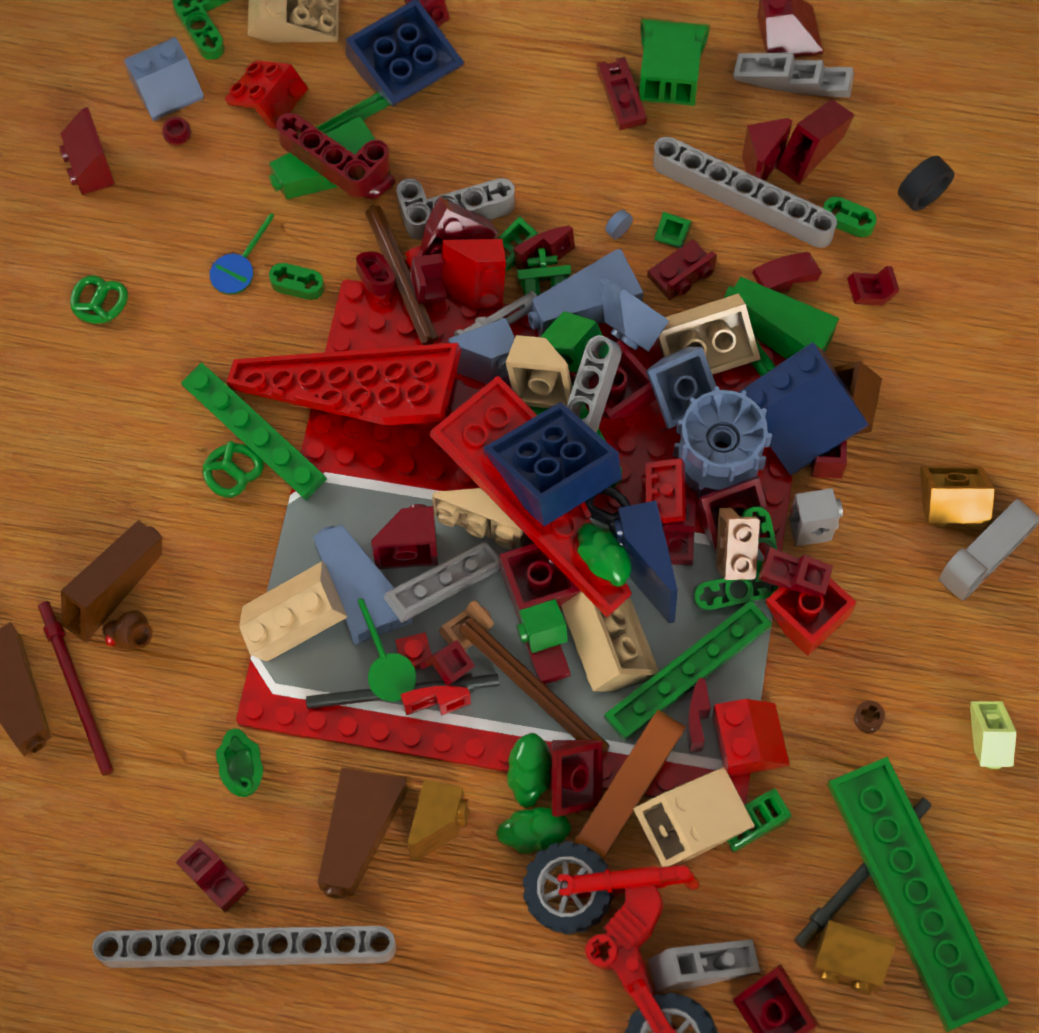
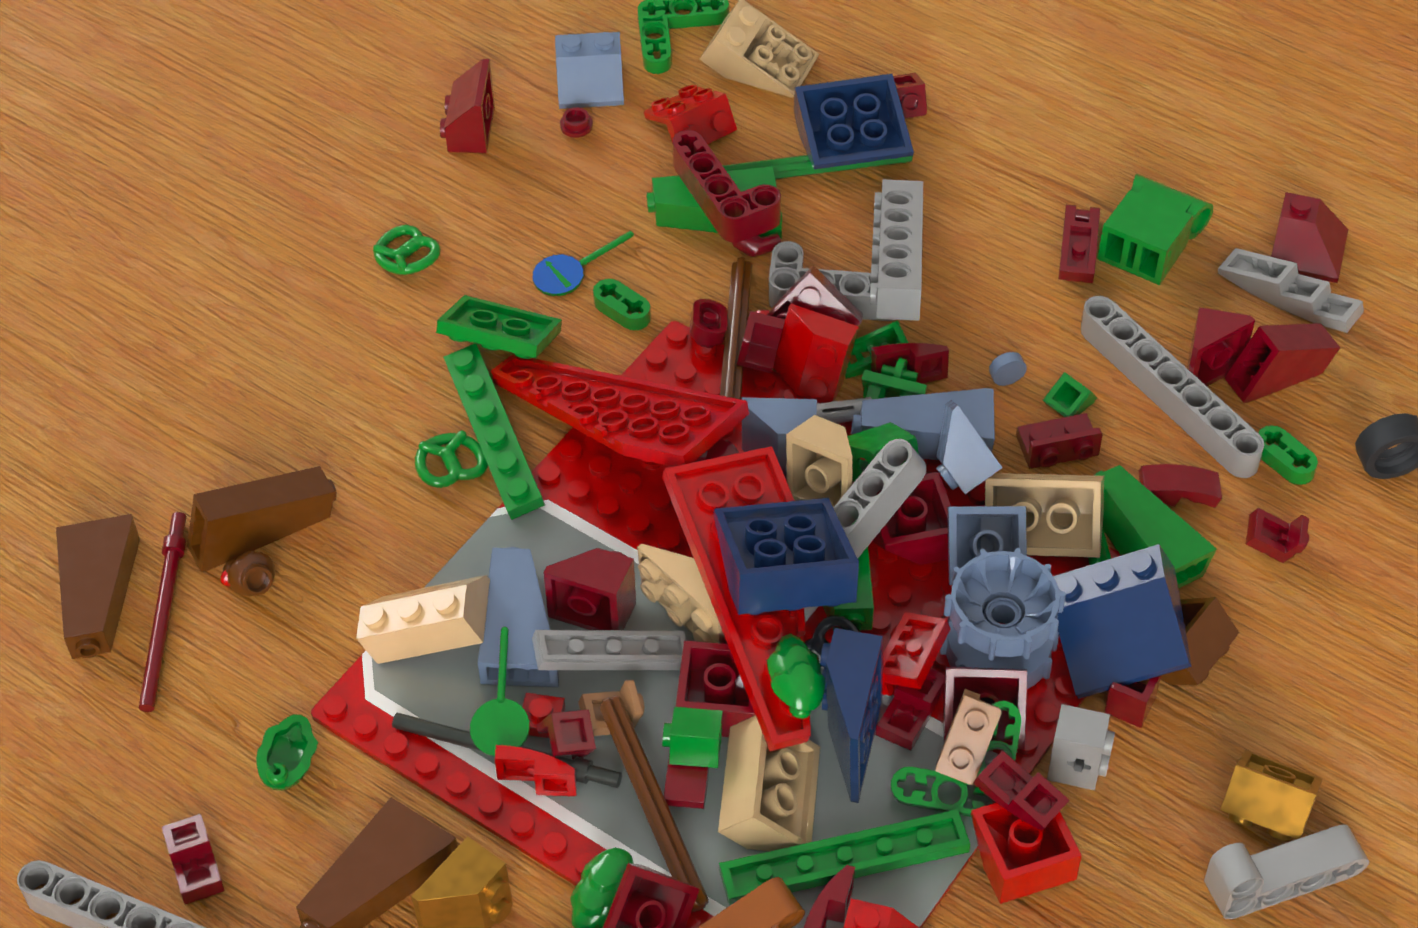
camera: 25 degrees right, 15 degrees down
(213, 341) = (499, 327): none -> green plate
(496, 156) = (897, 250): none -> light grey brick

